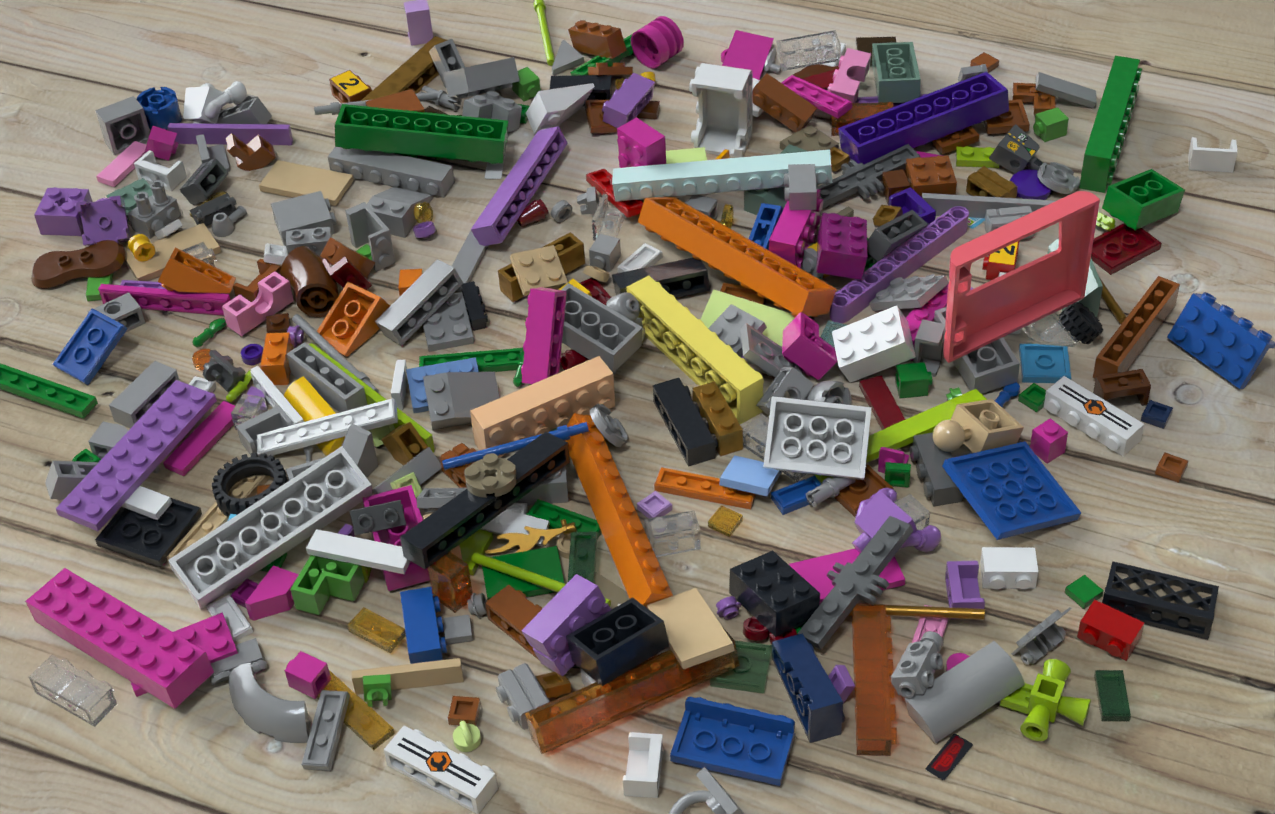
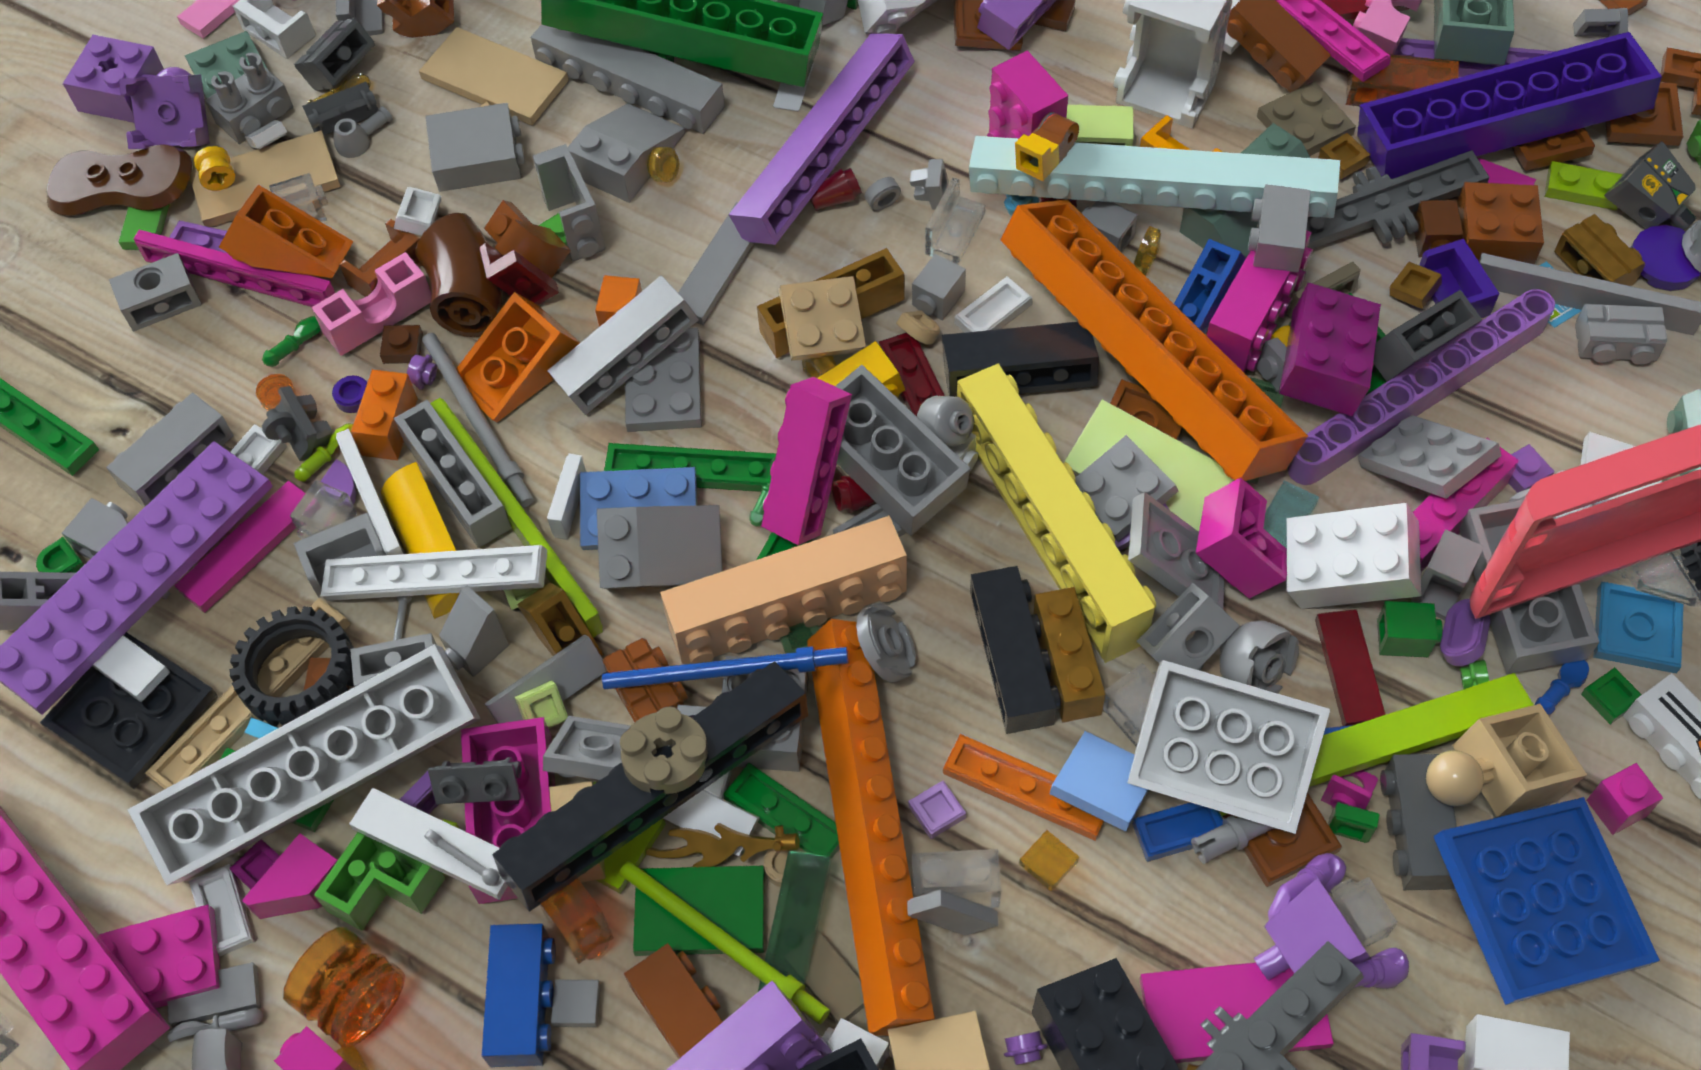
camera: 10 degrees right, 15 degrees up
(90, 346) = (102, 345): blue tile -> none
(313, 238) = (472, 195): light grey brick -> none
(318, 632) = (343, 986): none -> clear orange wheel
(360, 545) = (489, 876): none -> light grey hinge
(376, 630) = (445, 983): clear yellow plate -> none
(424, 229) = (659, 195): medium lavender tile -> none
(473, 305) = (712, 359): black piece -> none
(477, 604) = (615, 962): light grey plate -> none
(603, 183) = (957, 144): red tile -> none
(658, 163) = (1047, 144): none -> leg
(673, 544) = (952, 912): none -> light grey tile
(945, 376) = (1463, 635): none -> medium lavender tile
(1001, 261) = (1597, 399): brick -> none

